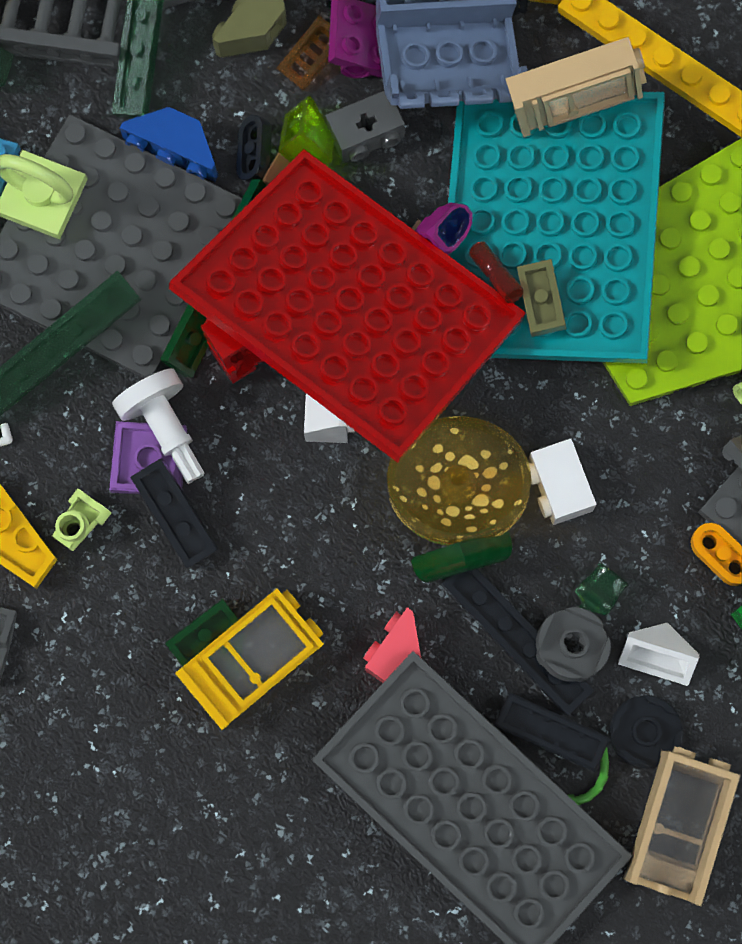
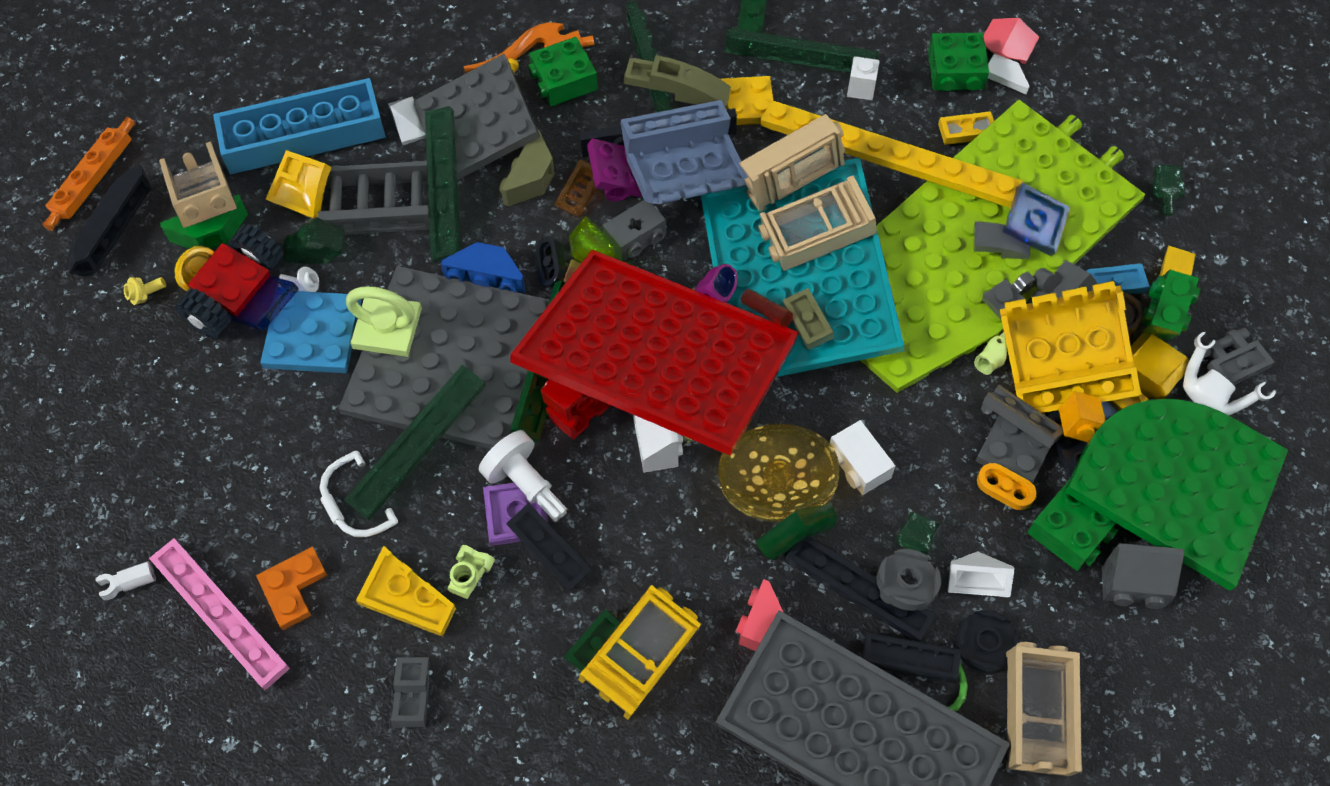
camera: 15 degrees left, 15 degrees down
(585, 175) = (818, 224): none -> tan door

